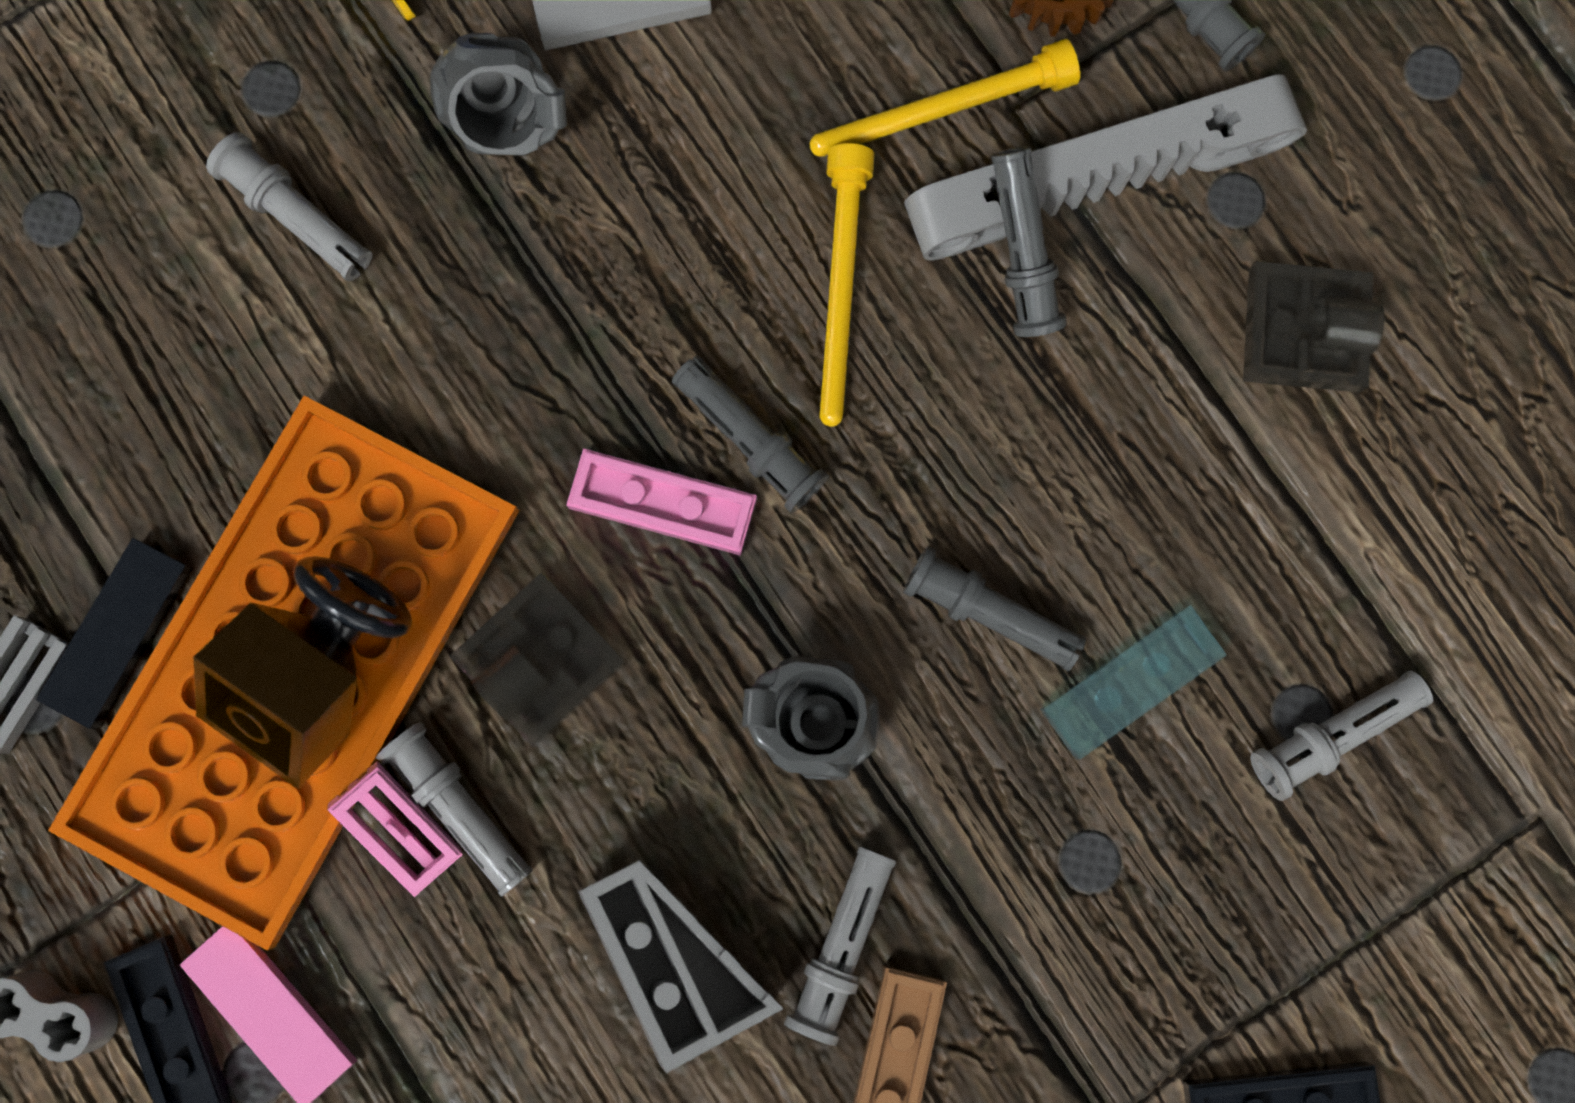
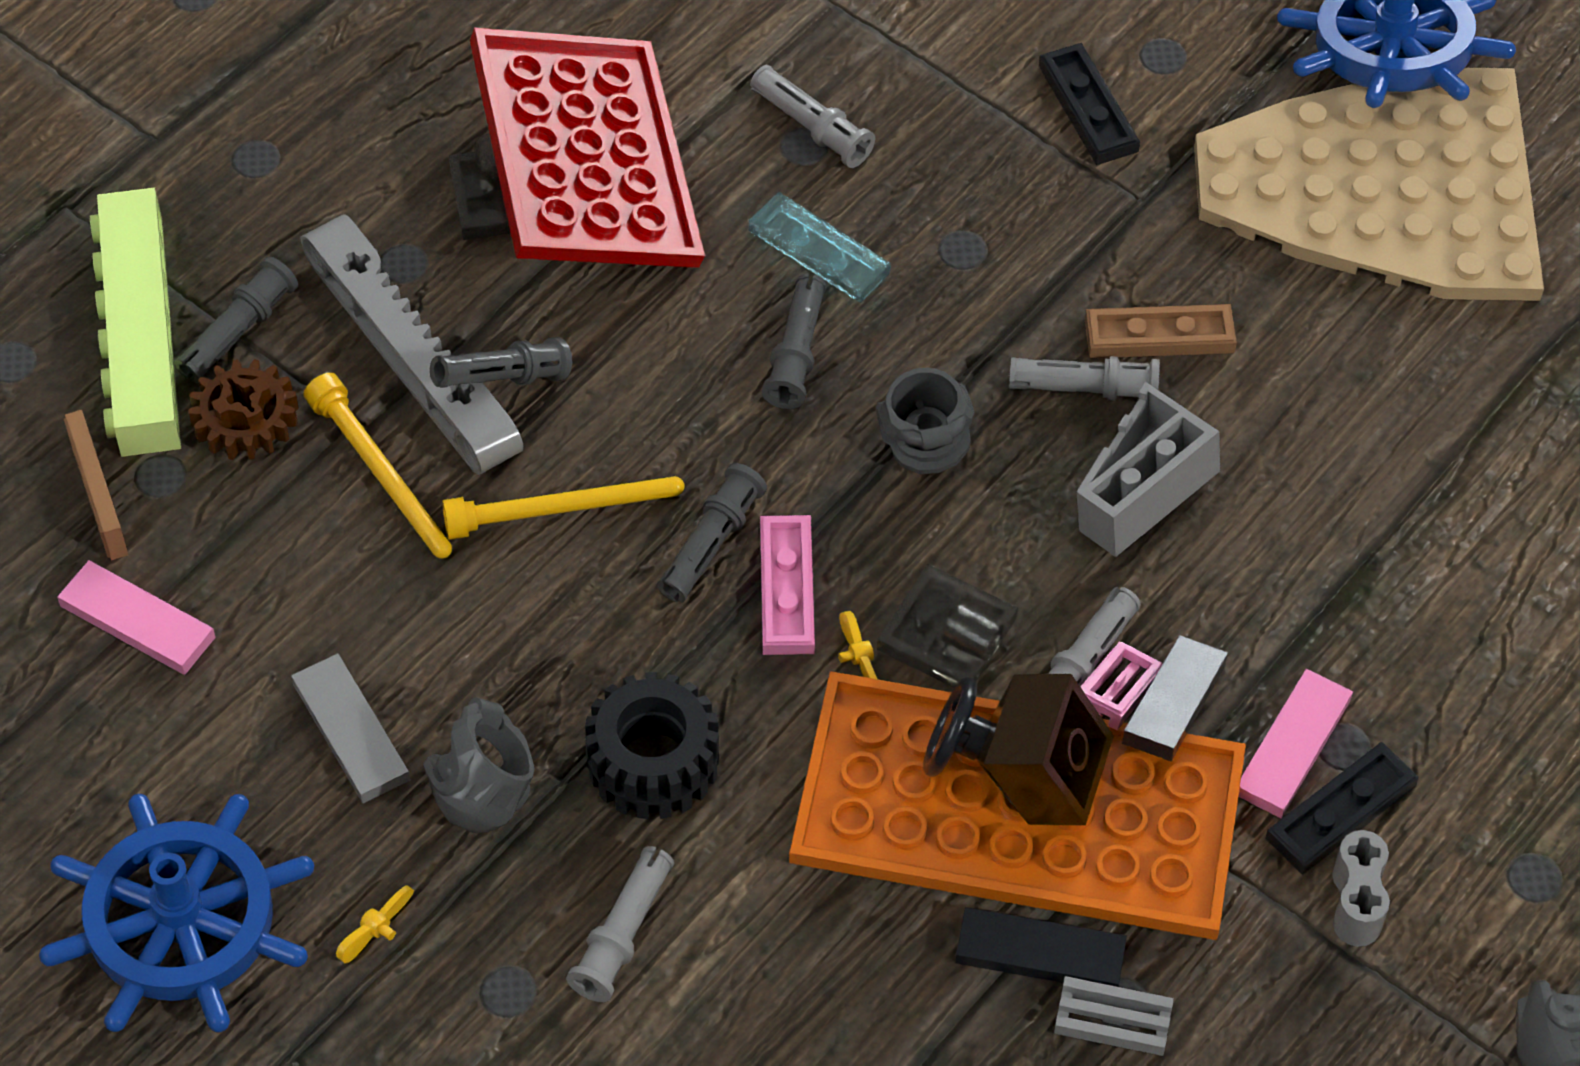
camera: 100 degrees left, 25 degrees down
(351, 888) = (1174, 698): none -> tile
(462, 242) = (647, 709): none -> black tyre
(545, 554) = (859, 651): none -> yellow piece
(1341, 426) = (585, 149): none -> plate

